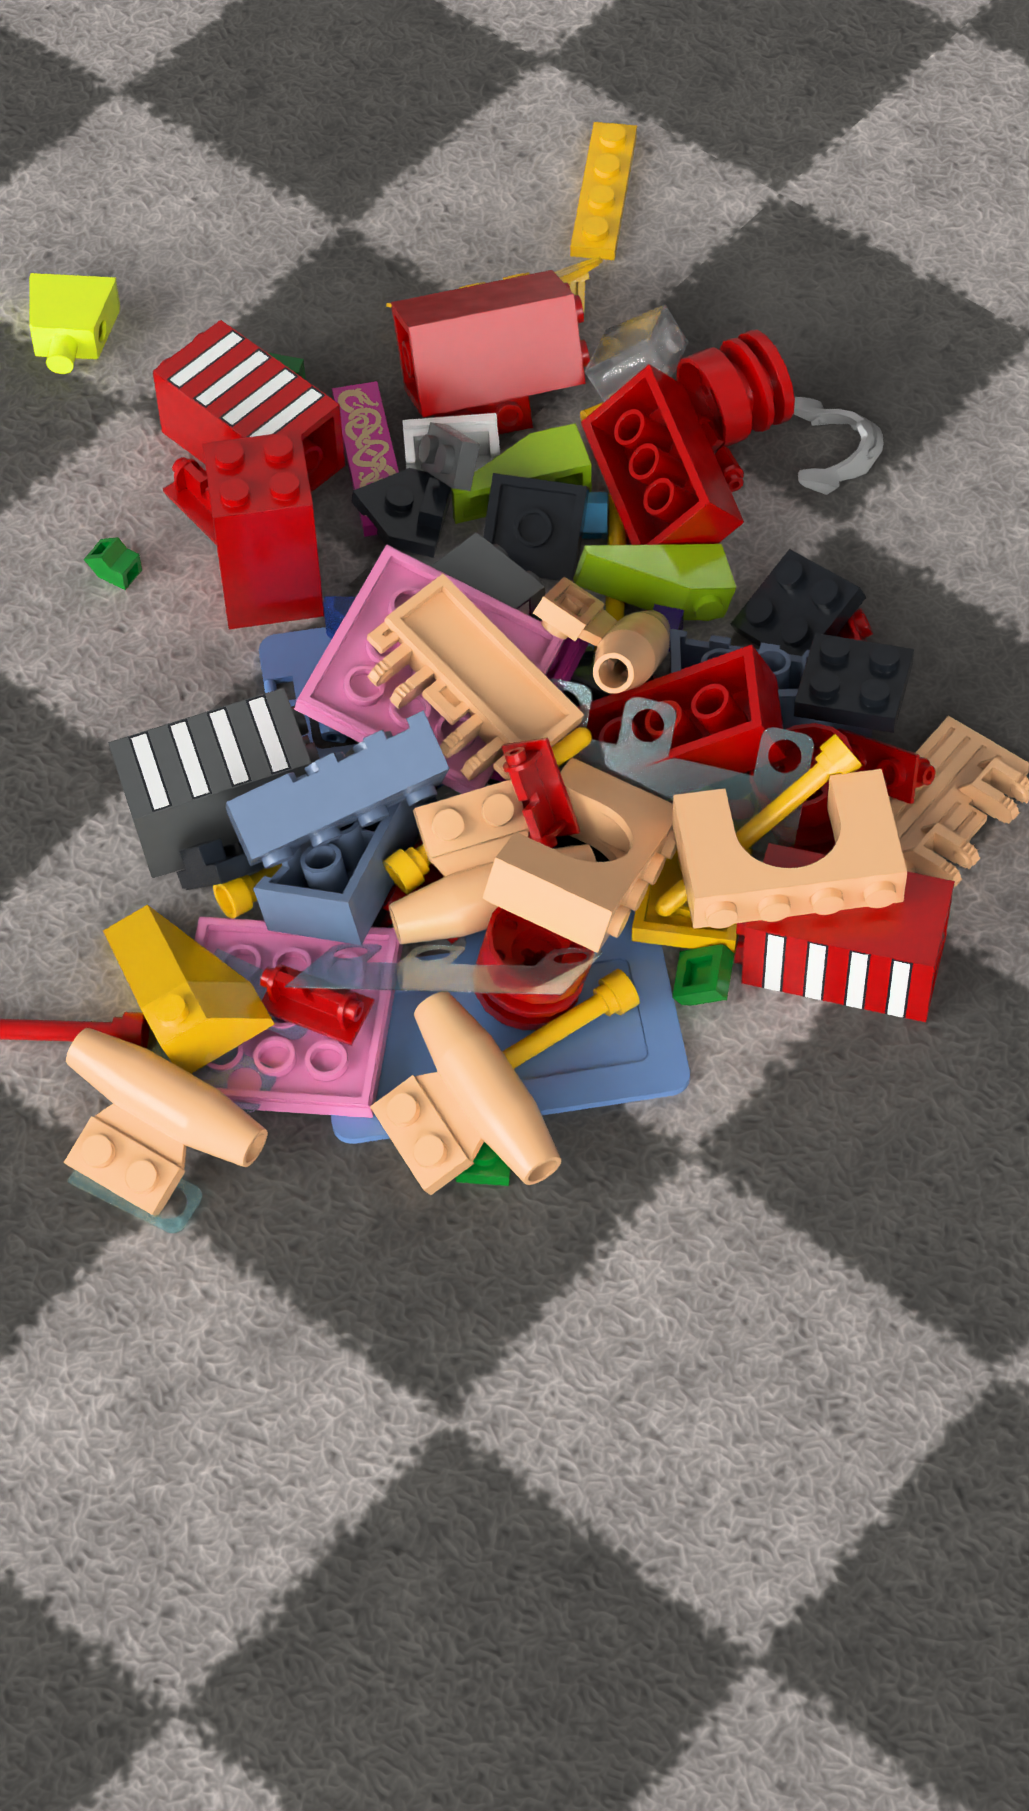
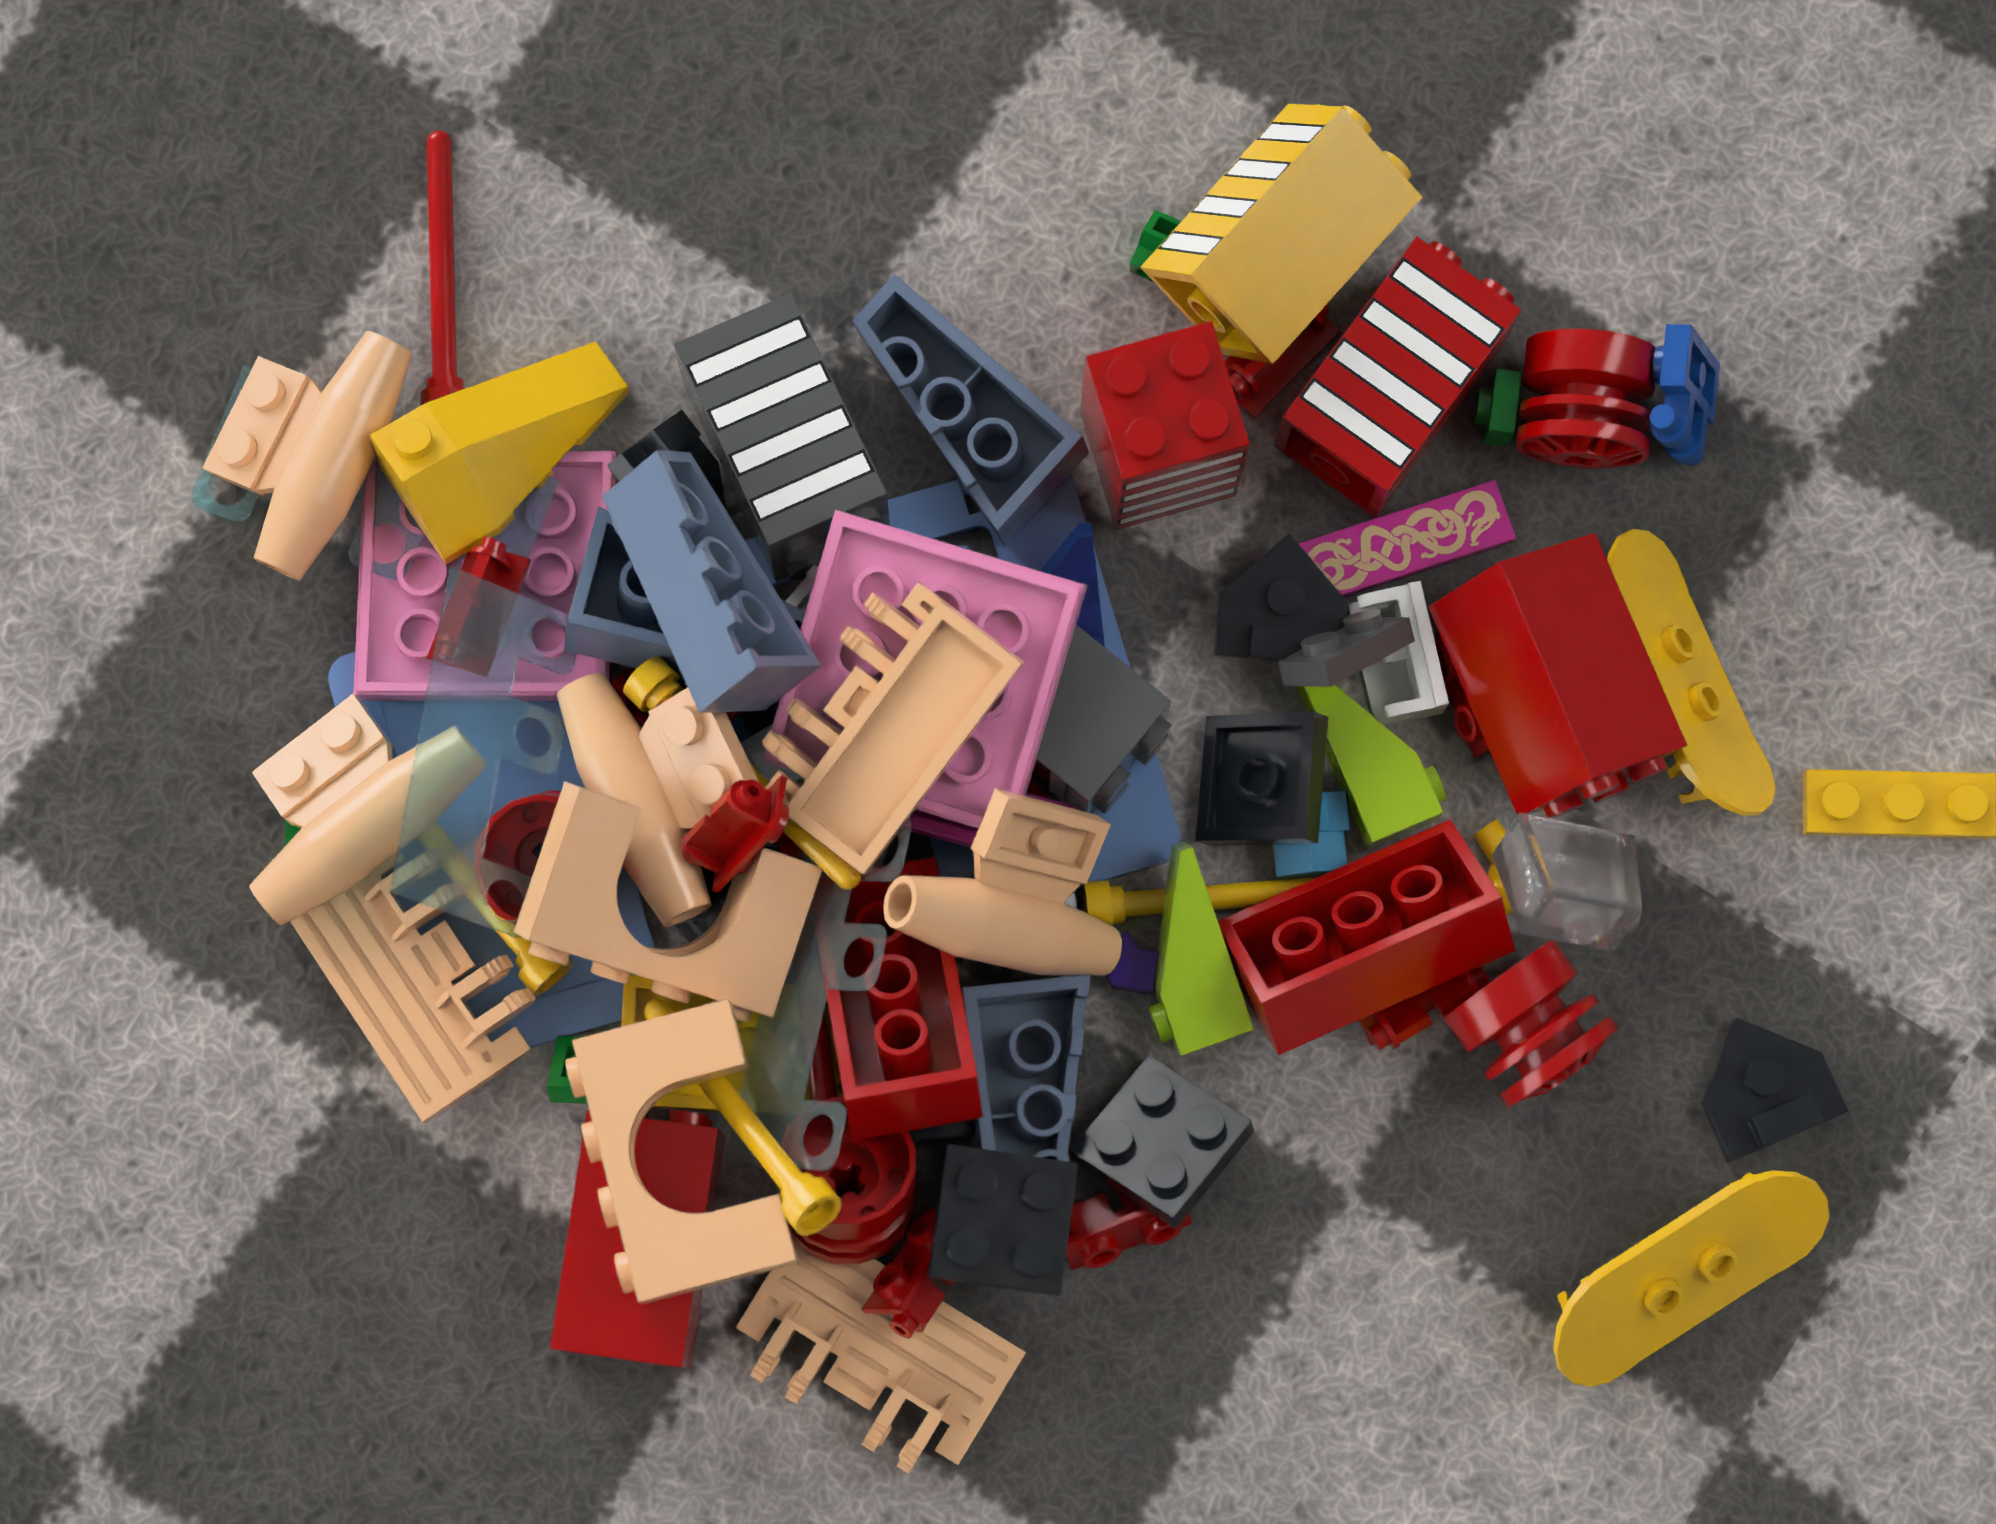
camera: 80 degrees right, 25 degrees up
(71, 317) = (1570, 111): neon yellow torso -> none
(123, 463) = (1283, 229): none -> yellow brick
(229, 657) = (981, 418): none -> sand blue wedge
(289, 316) = (1586, 398): none -> red wheel
(292, 267) = (1690, 383): none -> blue plate
(624, 1097) = (406, 995): none -> light nougat hinge
(795, 291) = (1767, 1090): none -> black plate
(856, 464) = (1500, 1214): light grey helmet -> none
(895, 300) = (1687, 1273): none -> yellow piece

